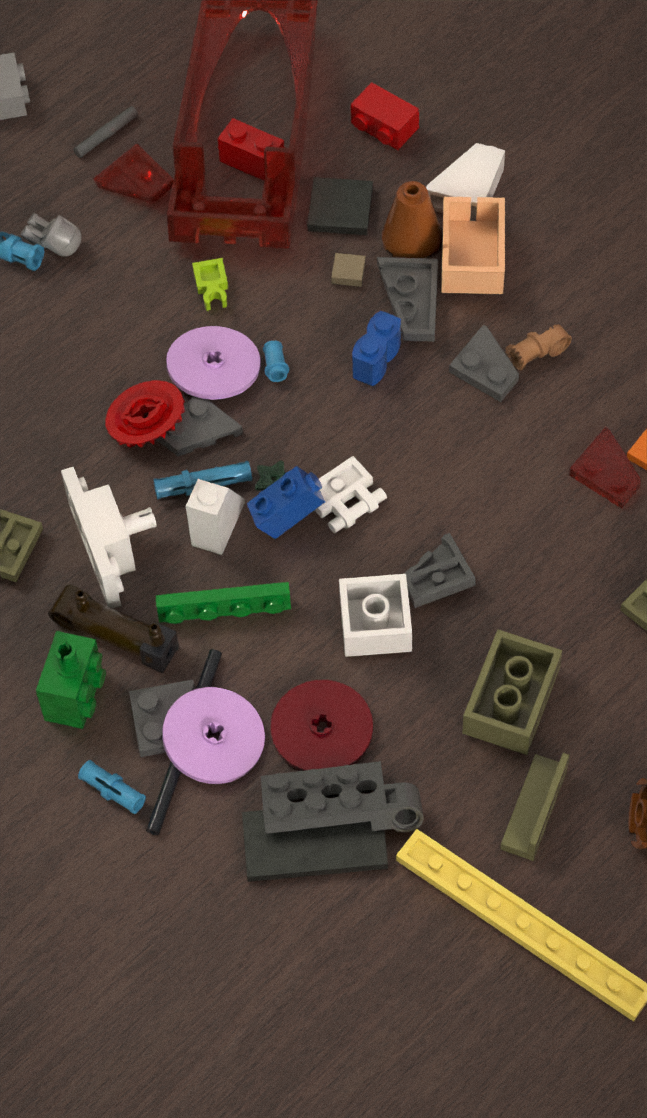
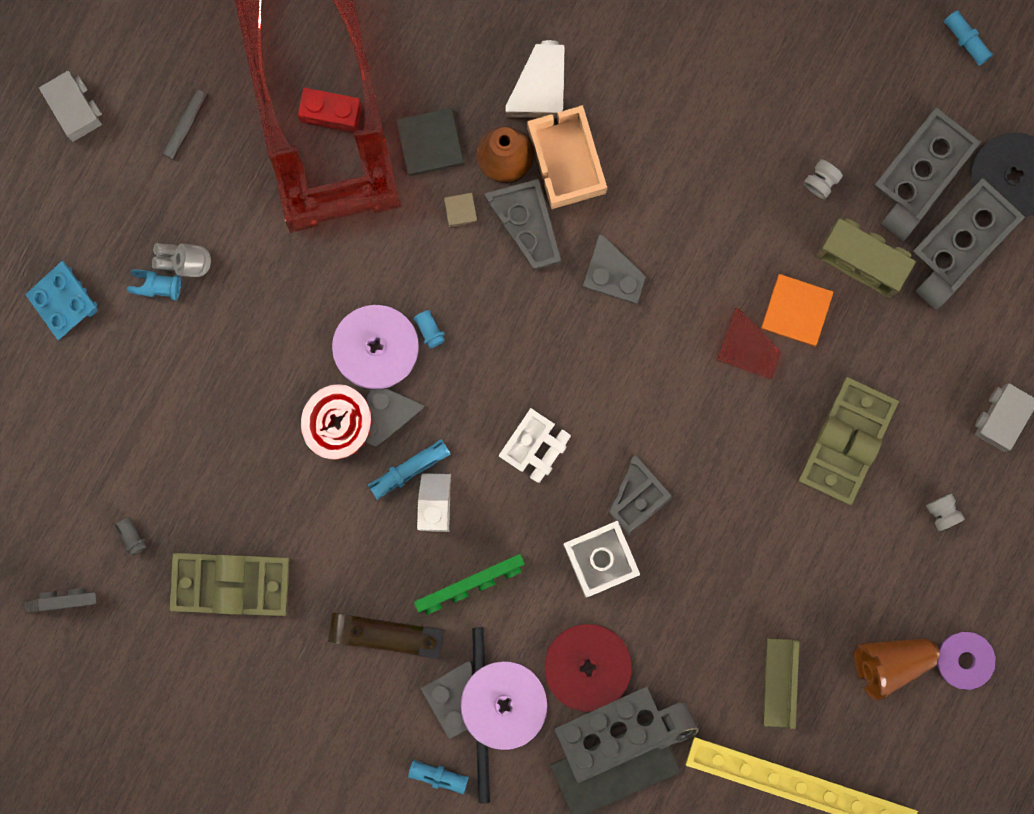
camera: 20 degrees left, 25 degrees up
(70, 680) = (373, 703): green brick -> none
(105, 532) = (348, 556): white brick -> none
(135, 176) = (233, 168): clear red wing -> none
(211, 281) = (342, 261): lime plate -> none
(267, 473) = (472, 455): clear green plate -> none
(286, 502) = (491, 477): blue brick -> none
(376, 348) = (513, 299): blue brick -> none
(384, 116) = (438, 32): red brick -> none
(512, 692) = (735, 594): olive brick -> none
(550, 342) = (651, 245): medium nougat connector -> none

